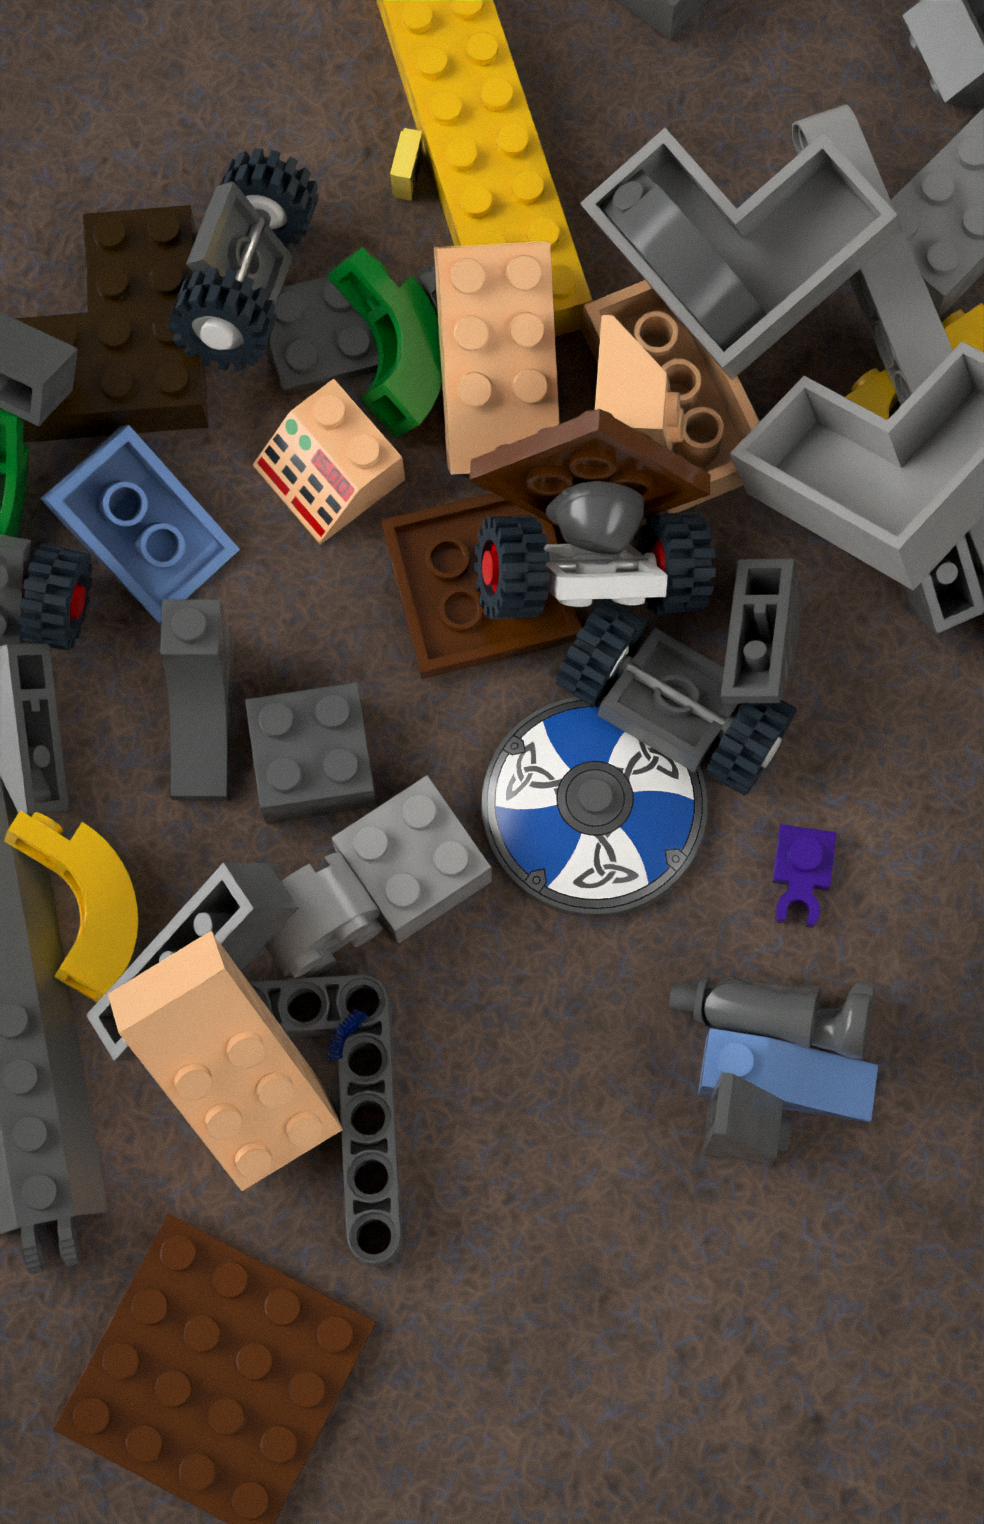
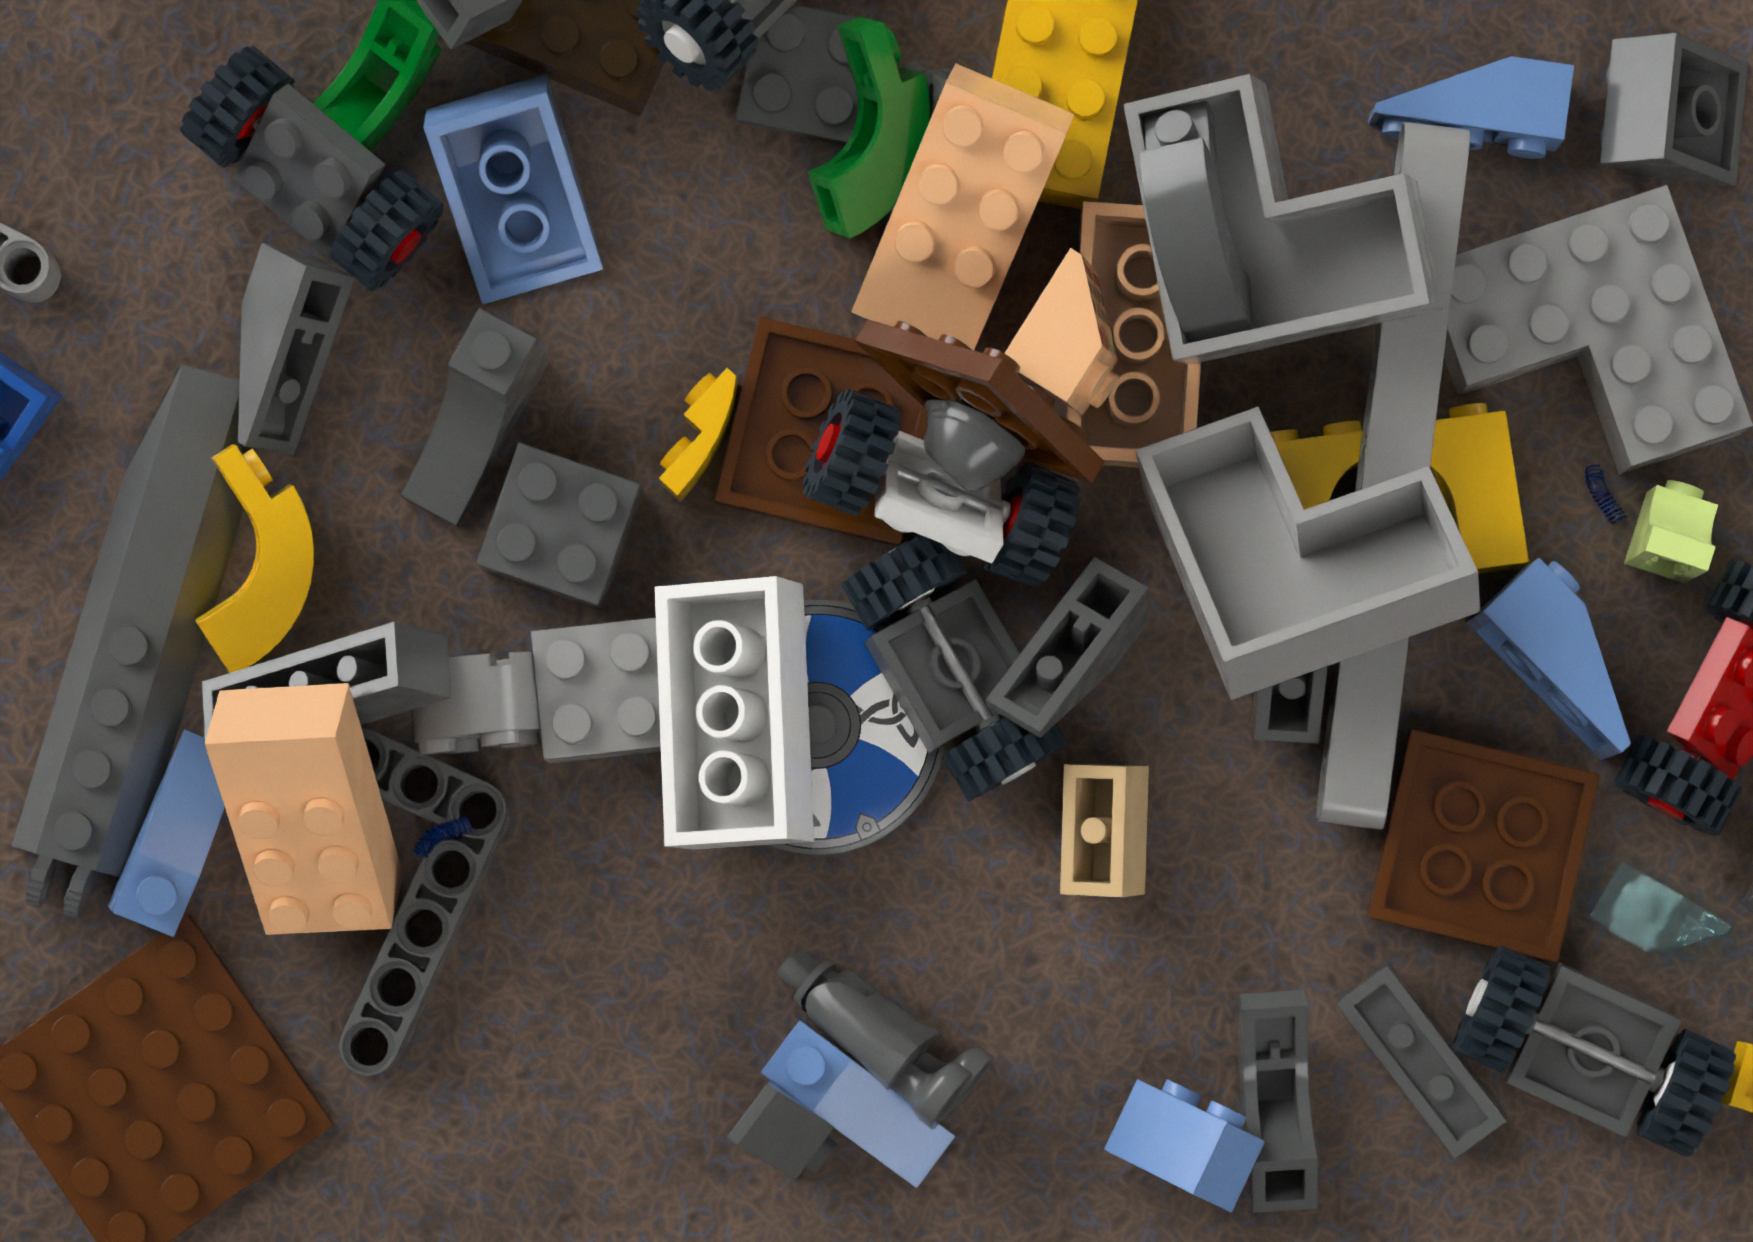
camera: 30 degrees right, 10 degrees up
(126, 1154) = (171, 841): none -> medium blue slope
(329, 462) = (738, 225): light nougat slope -> none
(381, 617) = (709, 414): none -> yellow slope
(527, 816) = (734, 713): none -> white brick
(804, 864) = (994, 897): dark purple plate -> none
(861, 761) = (1104, 830): none -> tan brick
(863, 81) = (1501, 103): none -> medium blue slope

